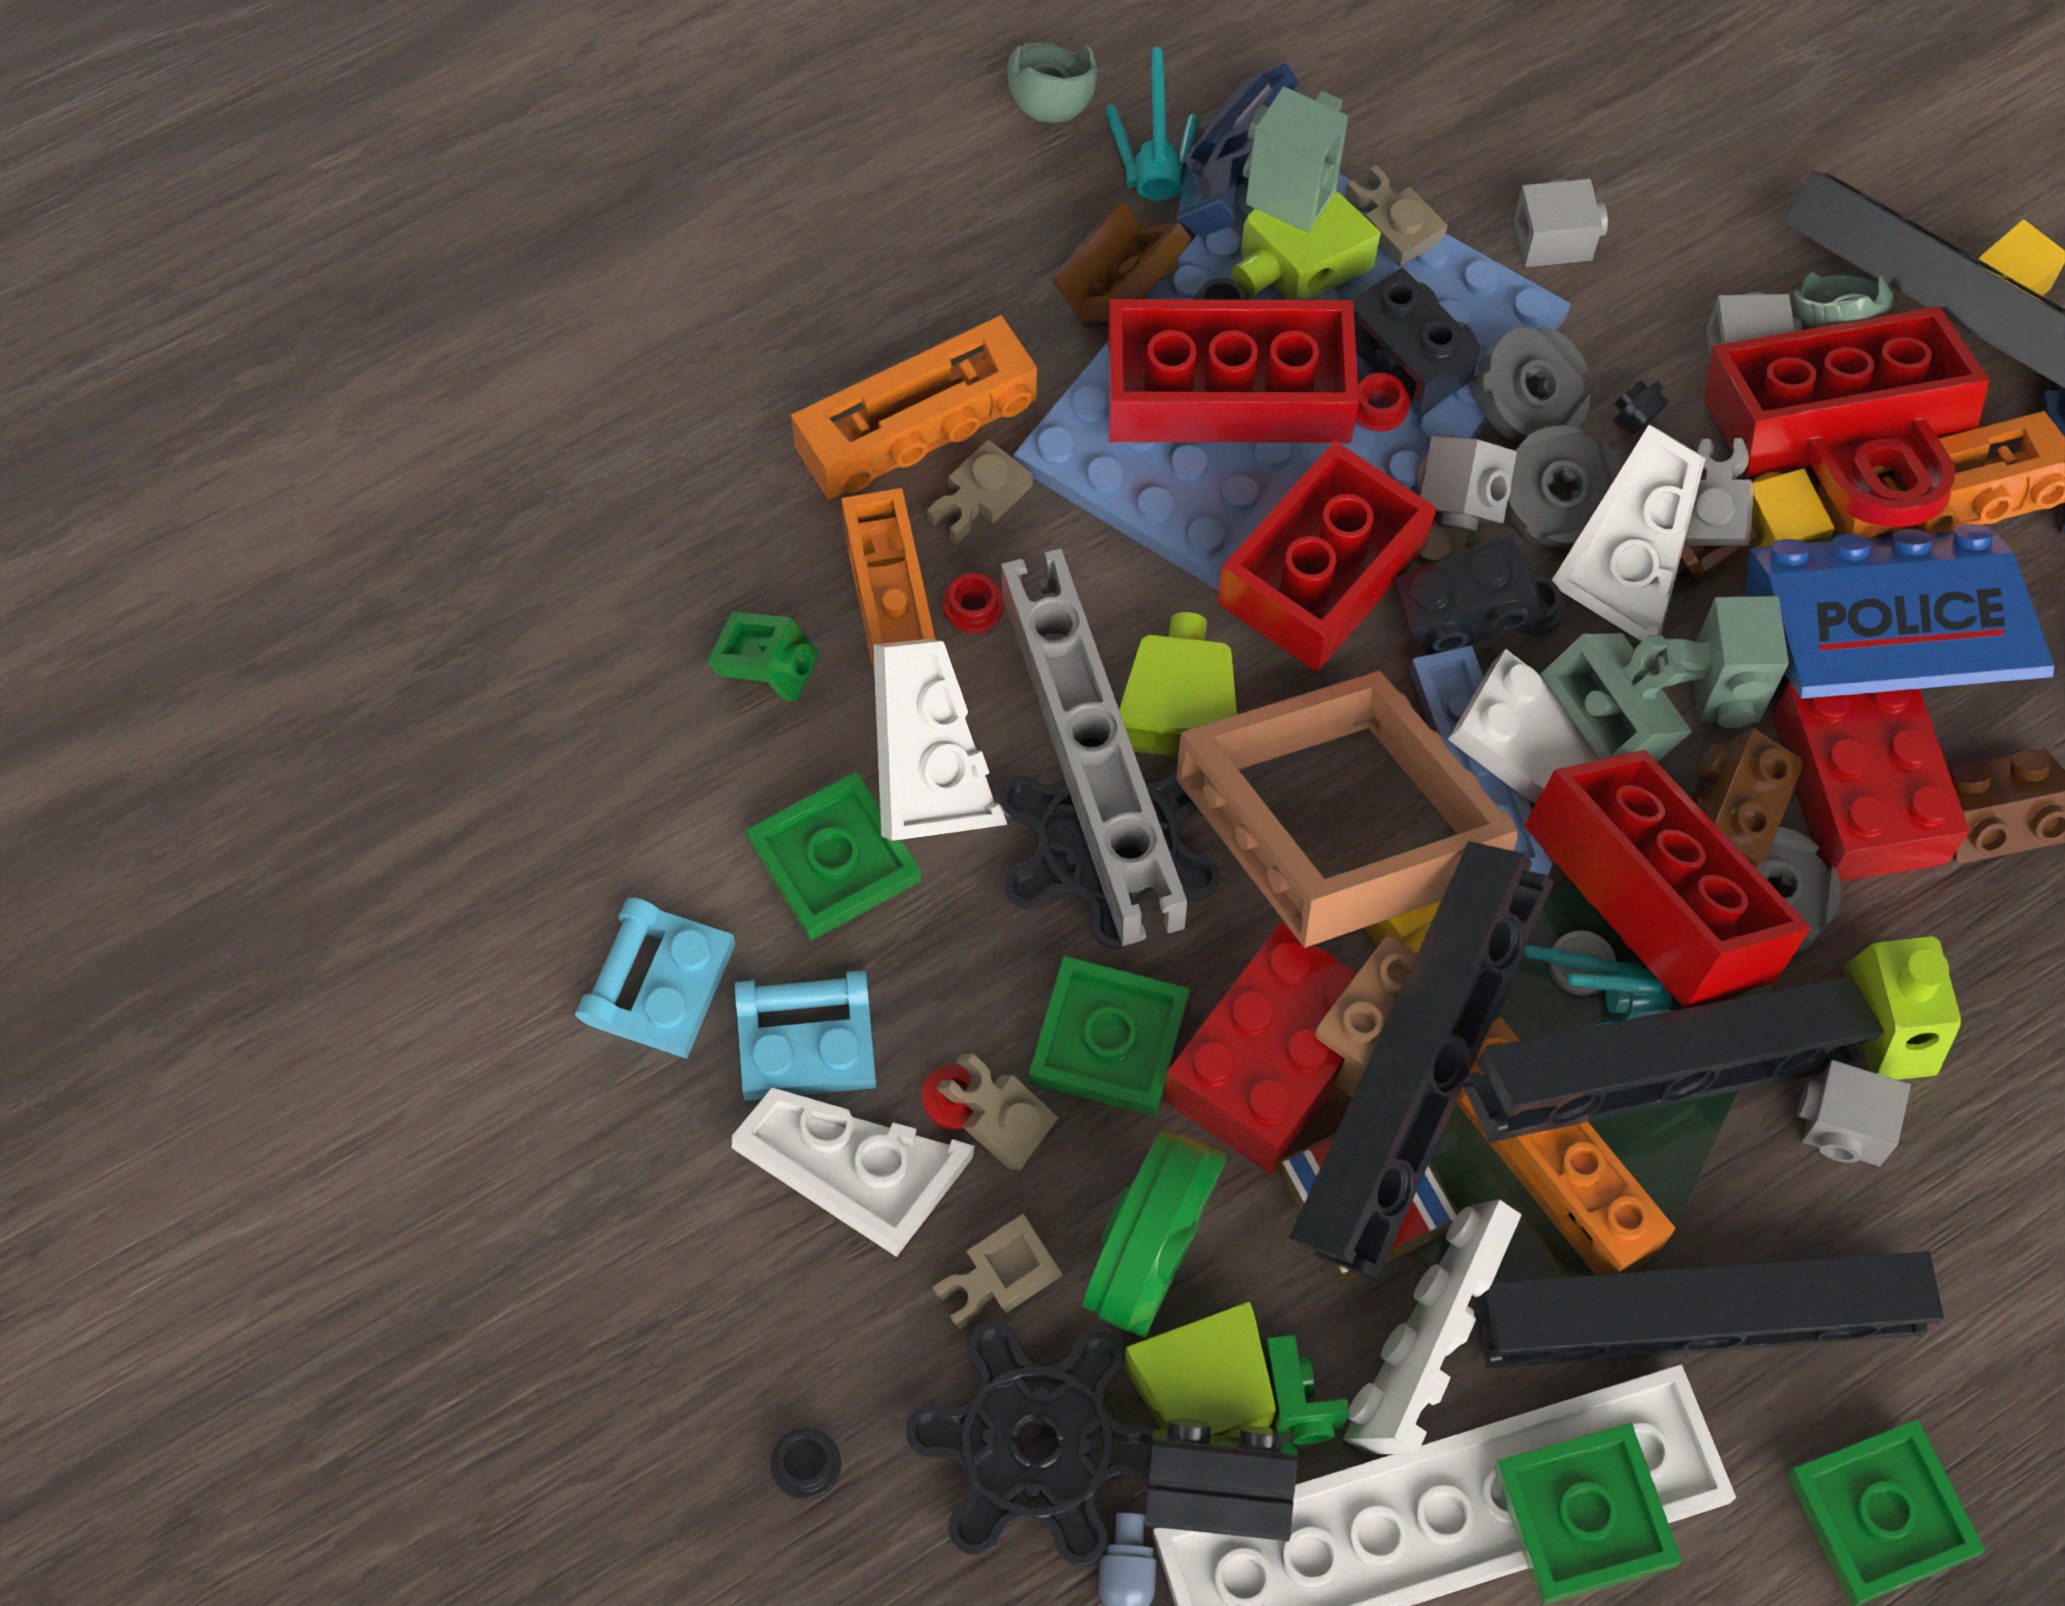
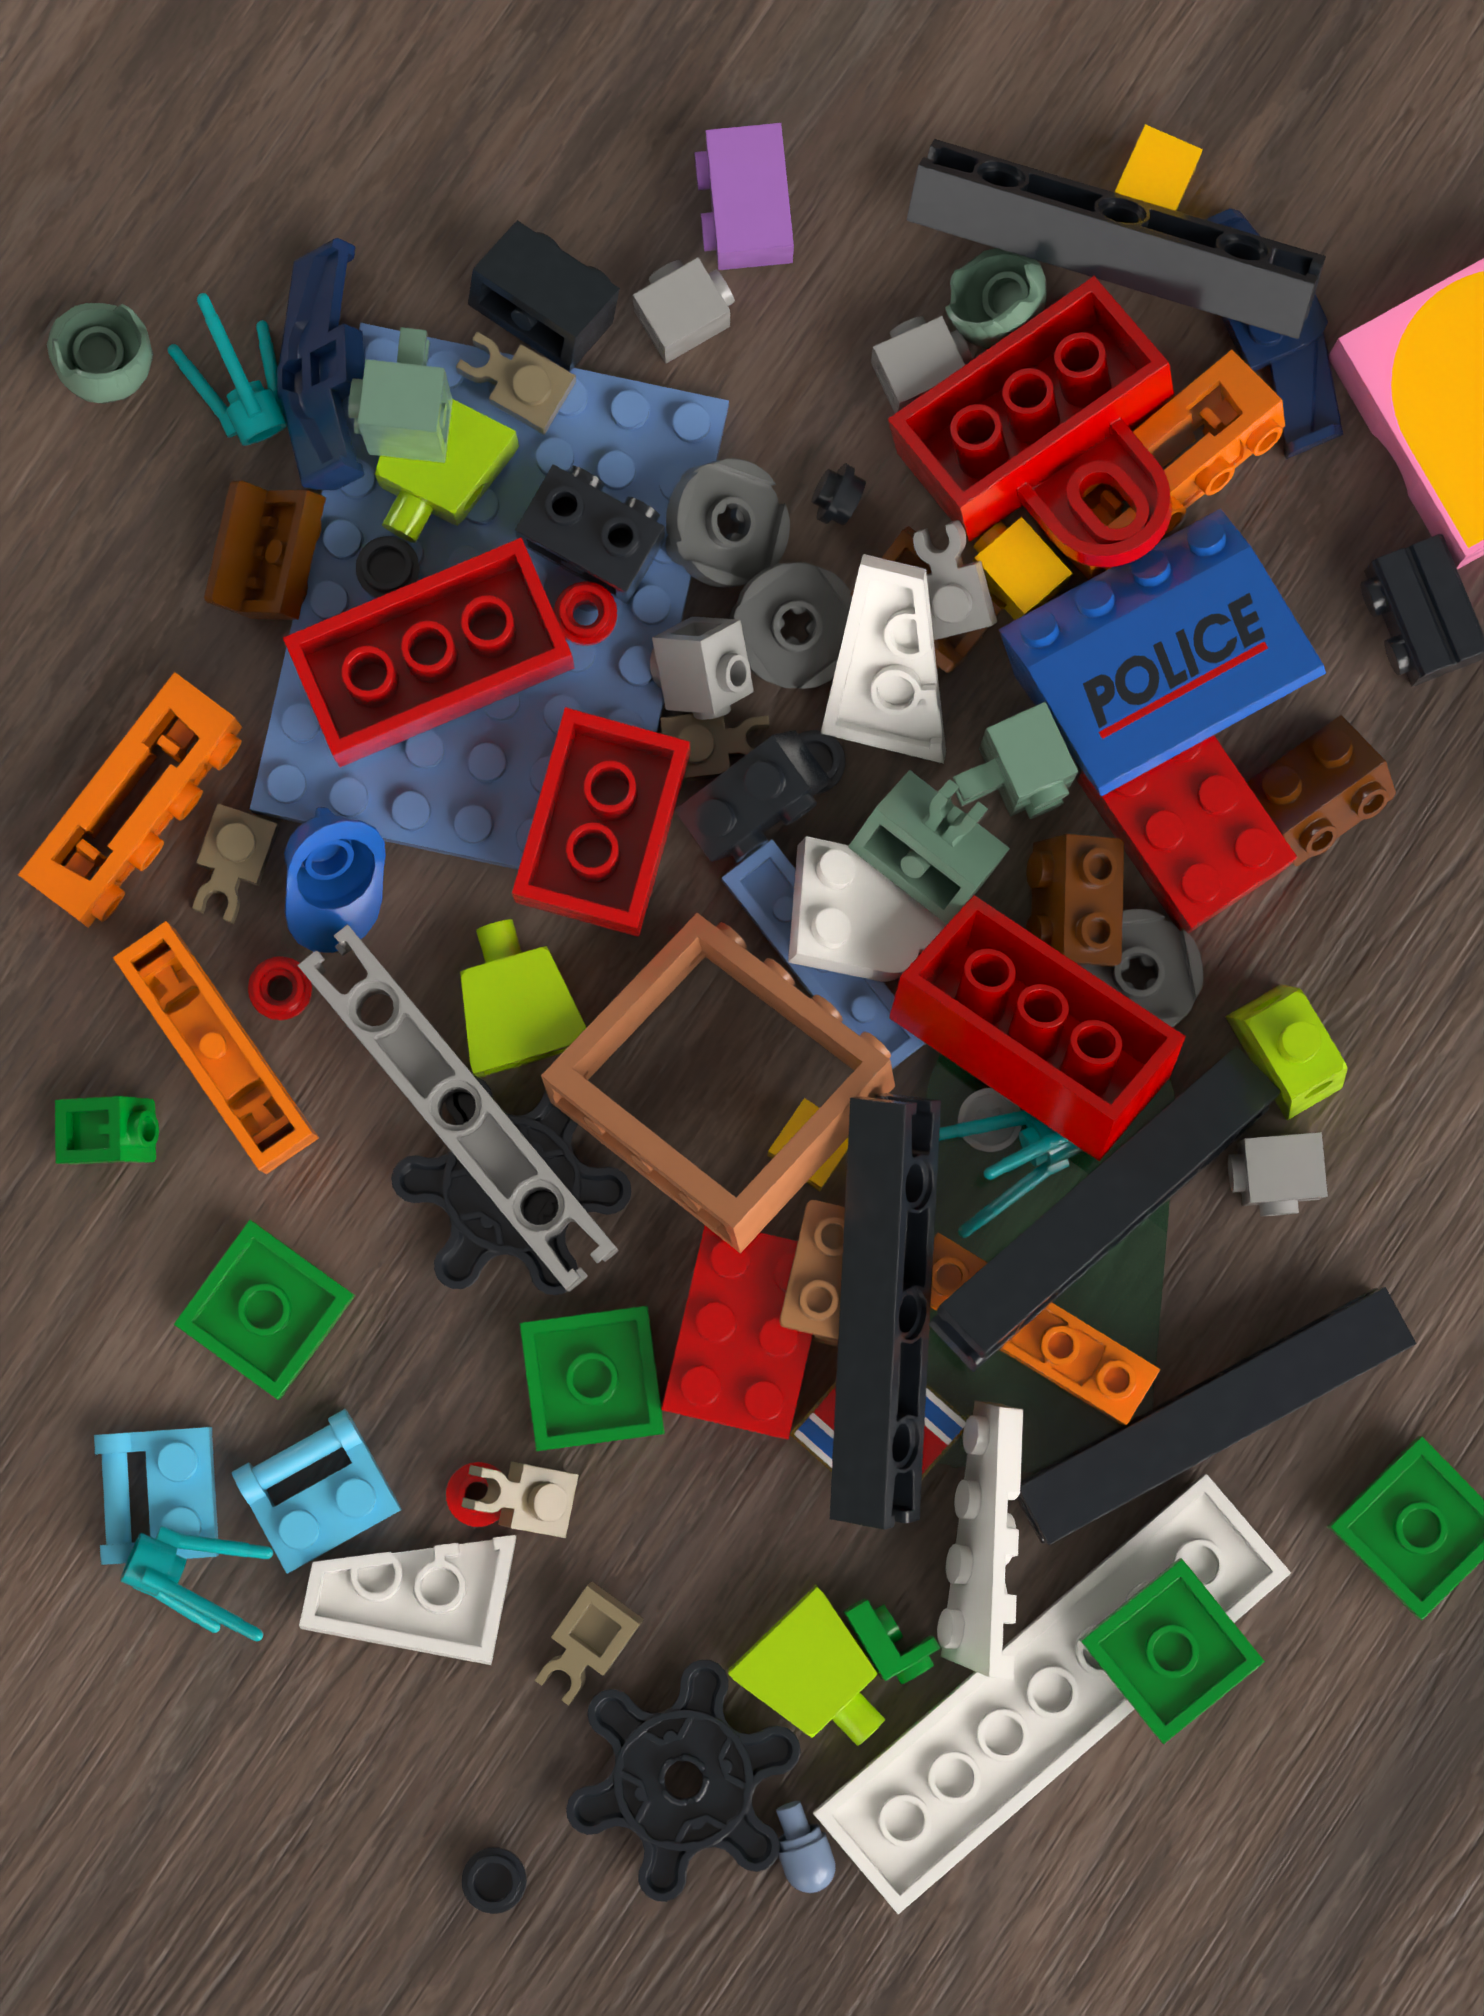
camera: 25 degrees left, 20 degrees up
(626, 1028) = (157, 1570): none -> teal plant
(926, 756) = (310, 1187): white wing -> none
(1066, 508) = (332, 879): none -> blue piece
(1152, 1231) = (710, 1567): green piece -> none
(1221, 1481) = (856, 1763): black brick -> none
(1444, 164) = (543, 295): none -> black brick
(1650, 158) = (748, 196): none -> medium lavender brick

